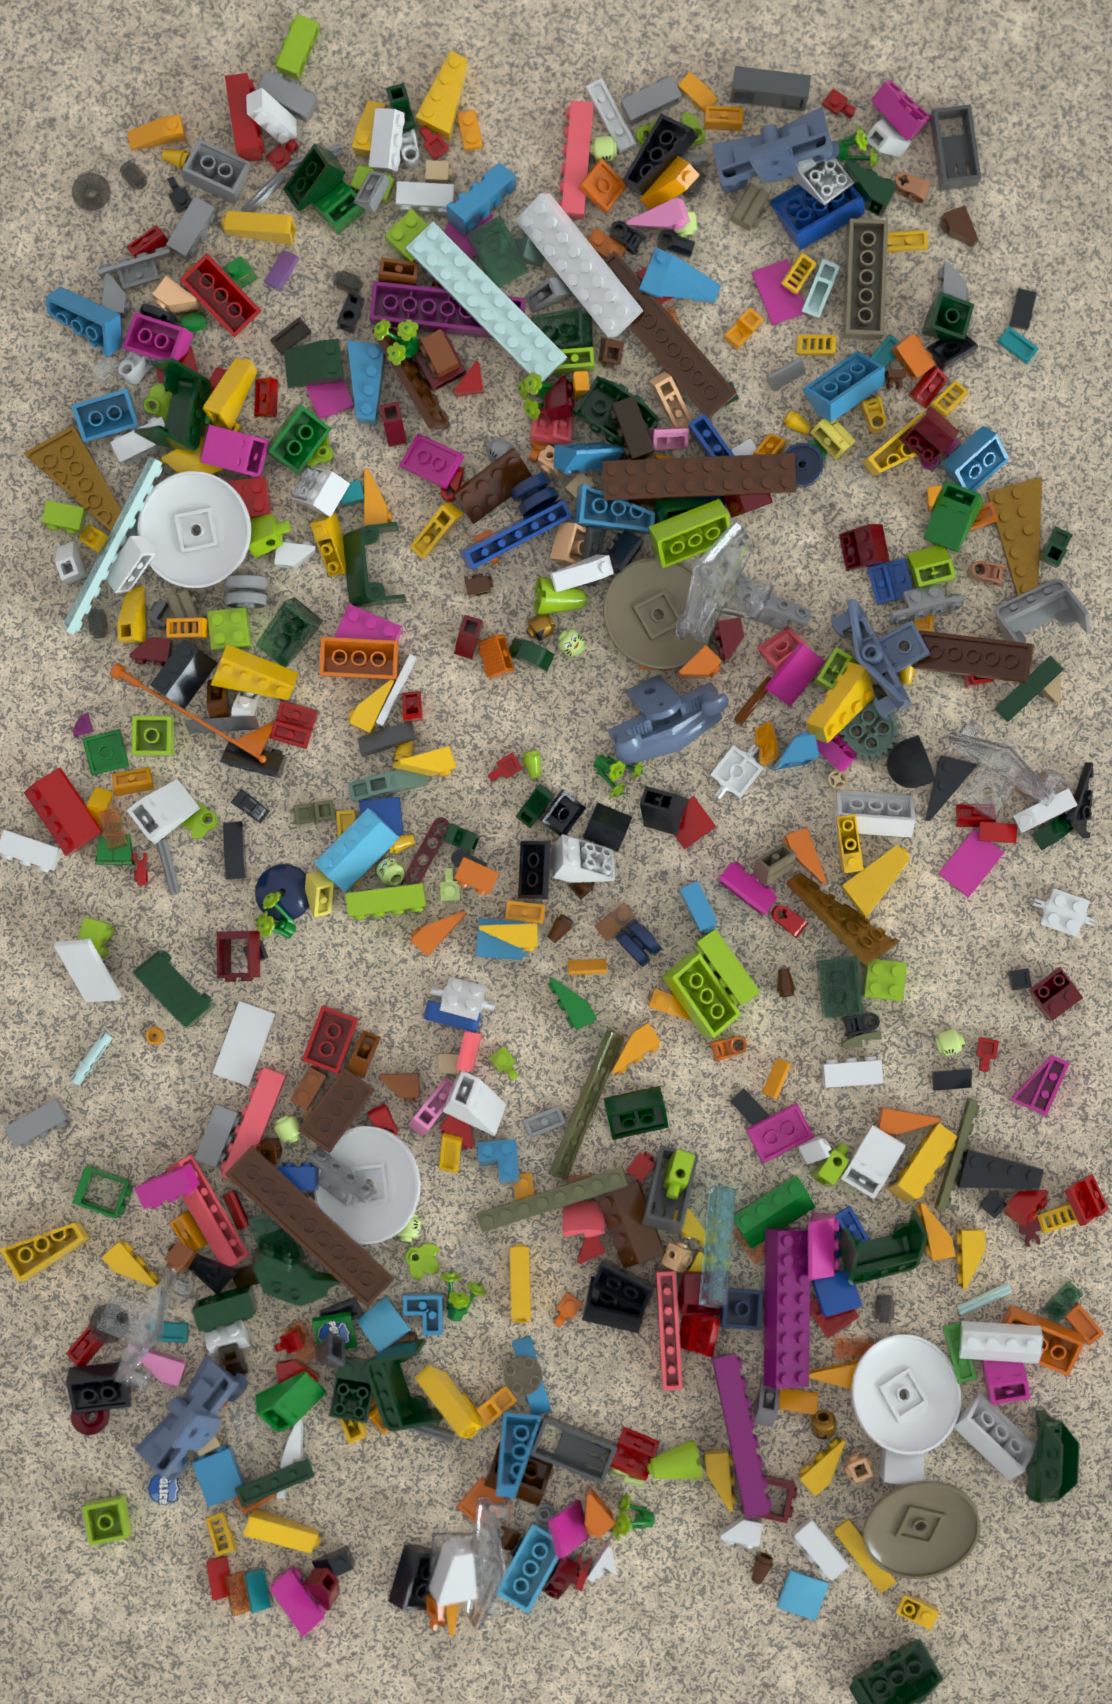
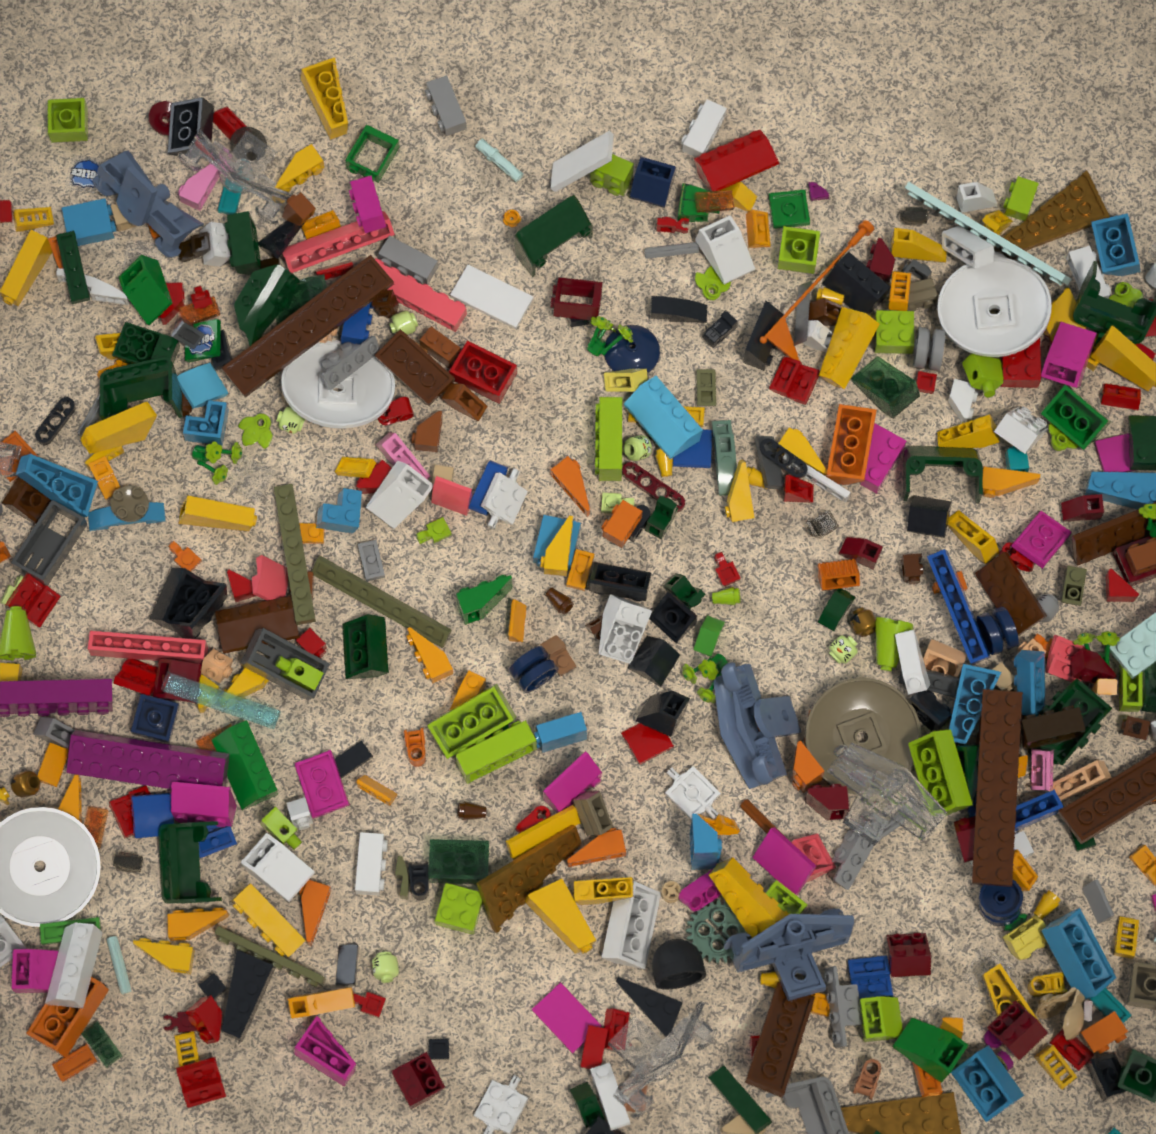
camera: 105 degrees right, 15 degrees down
(97, 895) = (652, 182): none -> dark blue slope
(199, 699) = (830, 295): none -> yellow cone
(278, 592) = (926, 382): none -> red plate
(396, 714) = (775, 446): none -> black beam
(420, 574) = (929, 516): none -> black slope
(445, 678) = (822, 525): none -> clear smoke bracket
(451, 1479) = (59, 407): none -> black beam
(476, 425) = (1073, 585): none -> olive slope
(573, 776) = (708, 635): none -> bright green slope
(800, 910) = (541, 832): none -> yellow tile
(906, 382) = (1053, 1005): none -> tan animal
(996, 1099) = (321, 1002): none -> light orange slope

